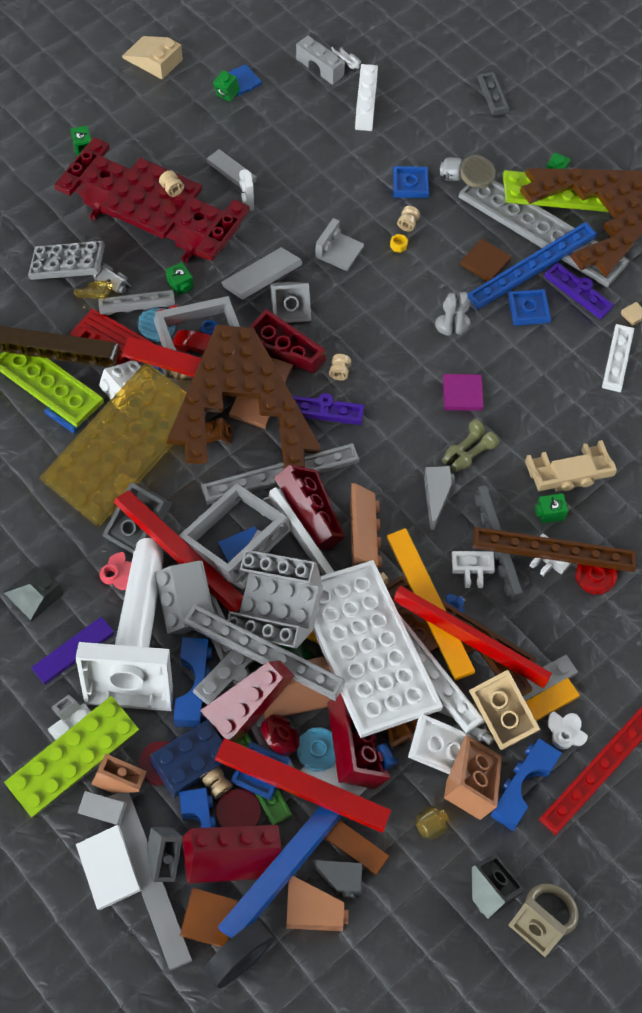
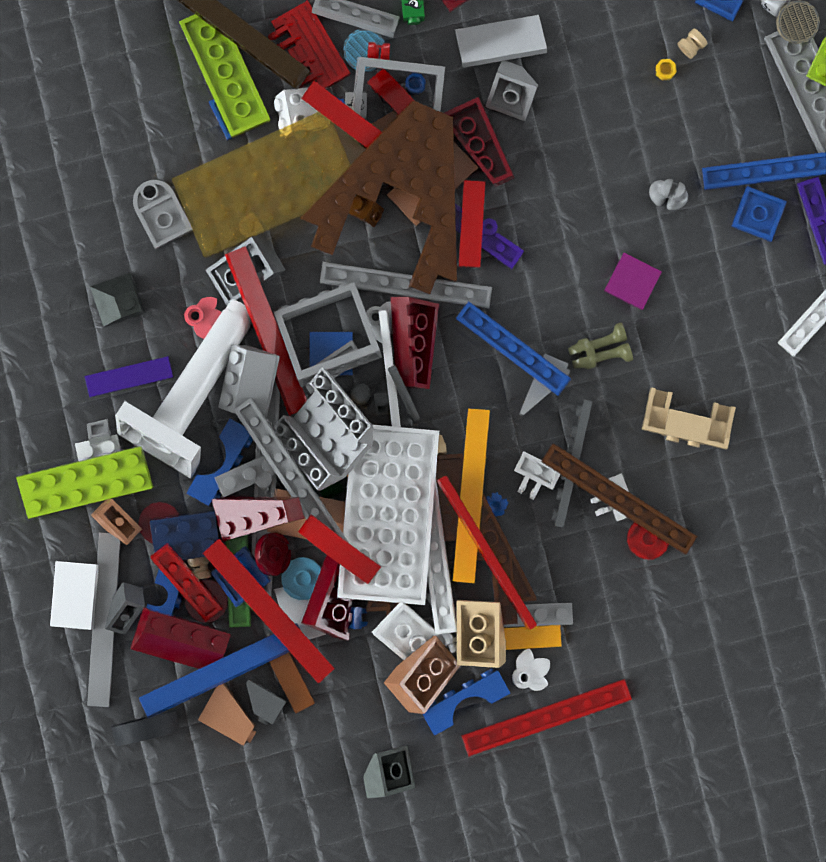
camera: 25 degrees right, 25 degrees up
(43, 510) = (162, 214): none -> light grey tile
(102, 808) = (90, 541): light grey tile -> none
(204, 915) = (137, 678): dark orange tile -> none
(212, 796) = (186, 582): none -> red tile
(311, 402) = (472, 224): none -> red tile
(324, 547) = (403, 393): none -> dark grey bar
(336, 247) = (598, 46): light grey bracket -> none
(339, 370) = (523, 194): tan wheel -> none
(341, 686) = (339, 549): none -> red slope
(364, 526) = (451, 390): nougat slope -> none
(398, 475) = (513, 348): none -> blue tile
(432, 822) = (365, 694): clear yellow head -> none
(485, 260) = (746, 134): reddish brown tile -> none
(539, 926) = (405, 825): dark tan tile -> none
(551, 508) = (644, 453): green brick -> none

